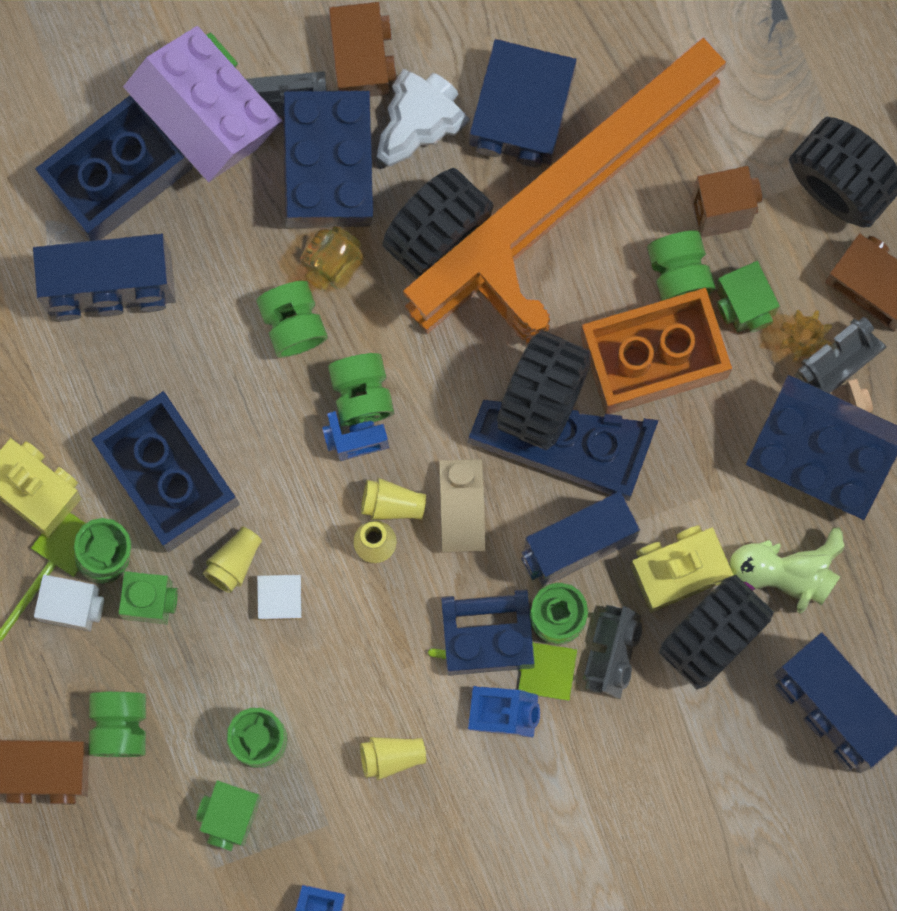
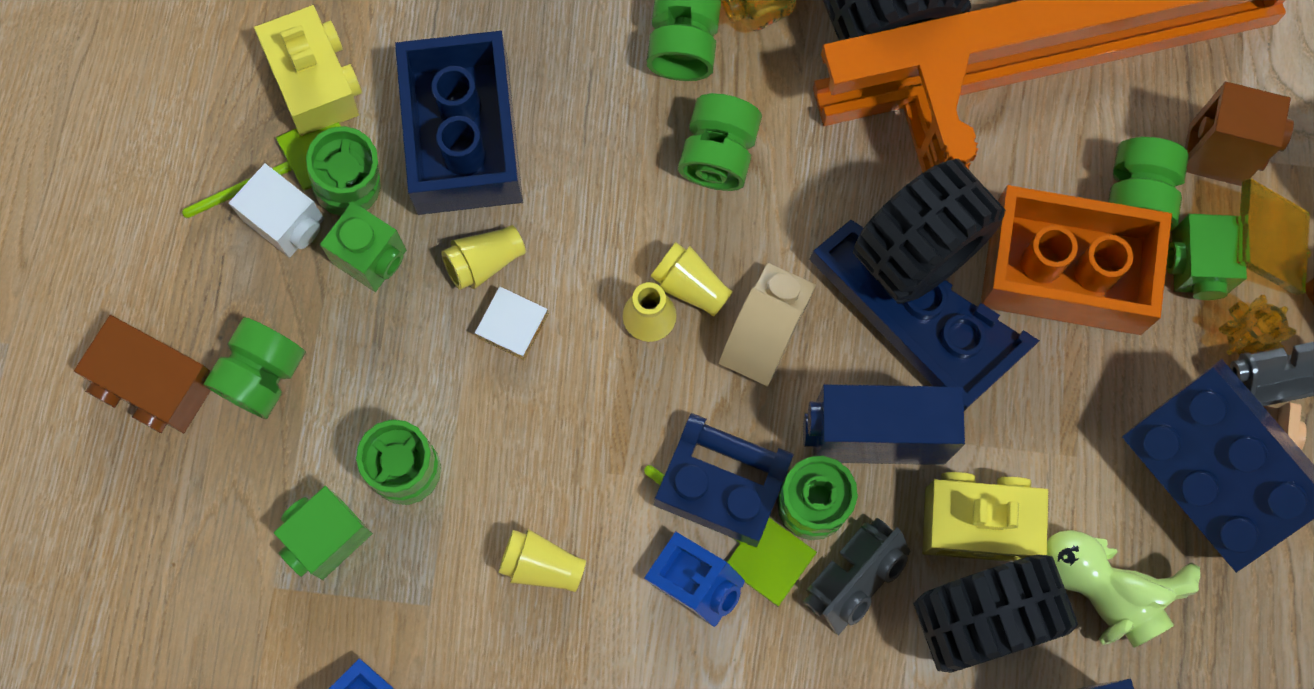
camera: 25 degrees right, 5 degrees down
(362, 439) = (687, 197): blue bracket -> none
(786, 261) = (1273, 237): none -> clear yellow piece

